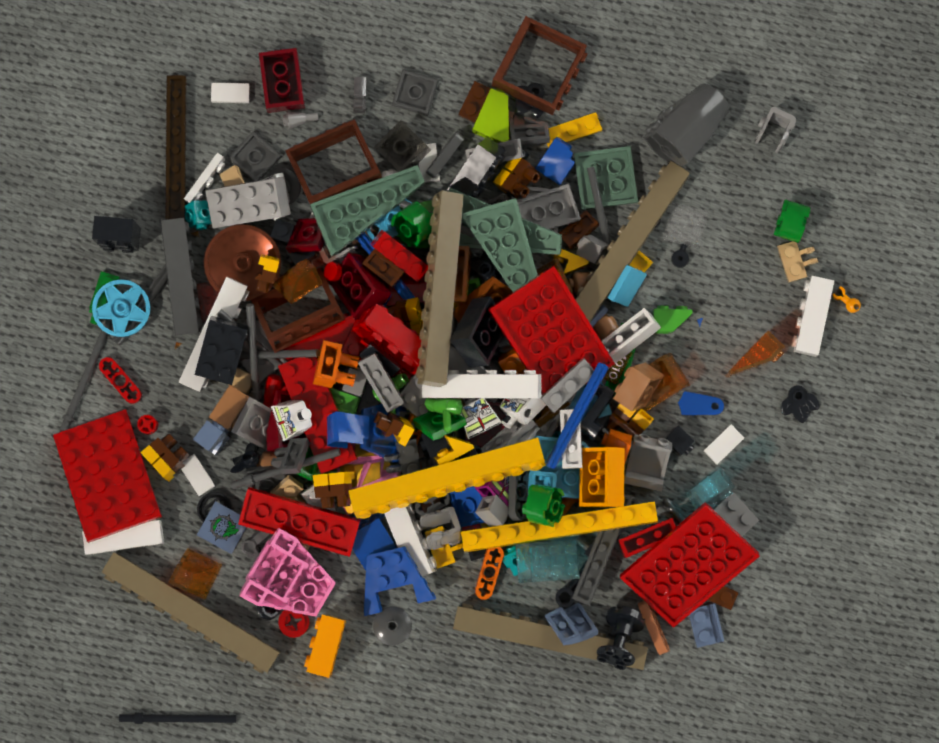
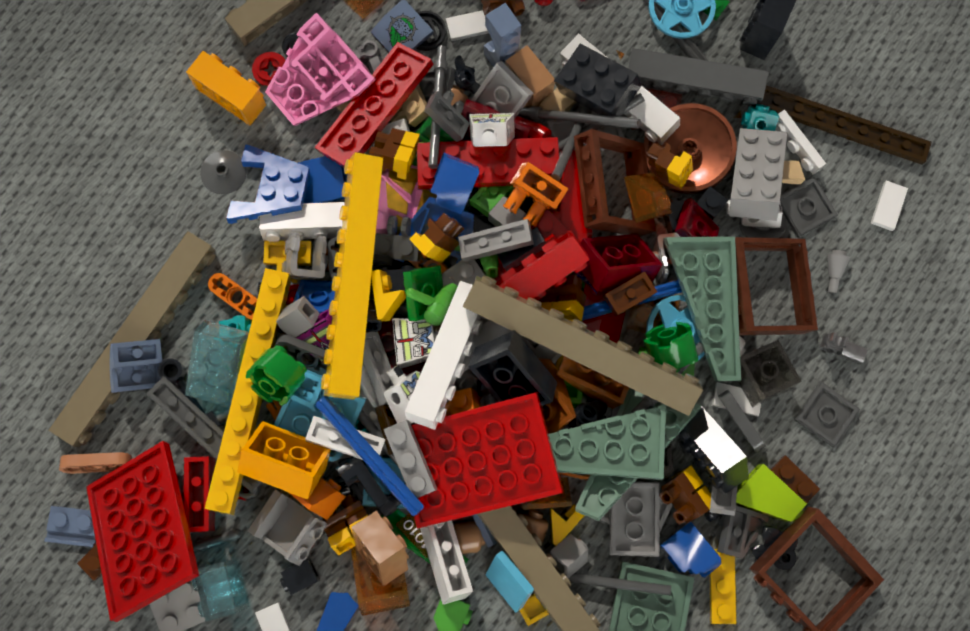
camera: 105 degrees right, 5 degrees down
(281, 80) = (889, 264): dark red brick -> none
(332, 271) = (645, 240): red tile -> none
(399, 255) = (640, 317): red brick -> none
(576, 230) = (598, 548): reddish brown plate -> none
(624, 624) = (101, 421): black piece -> none

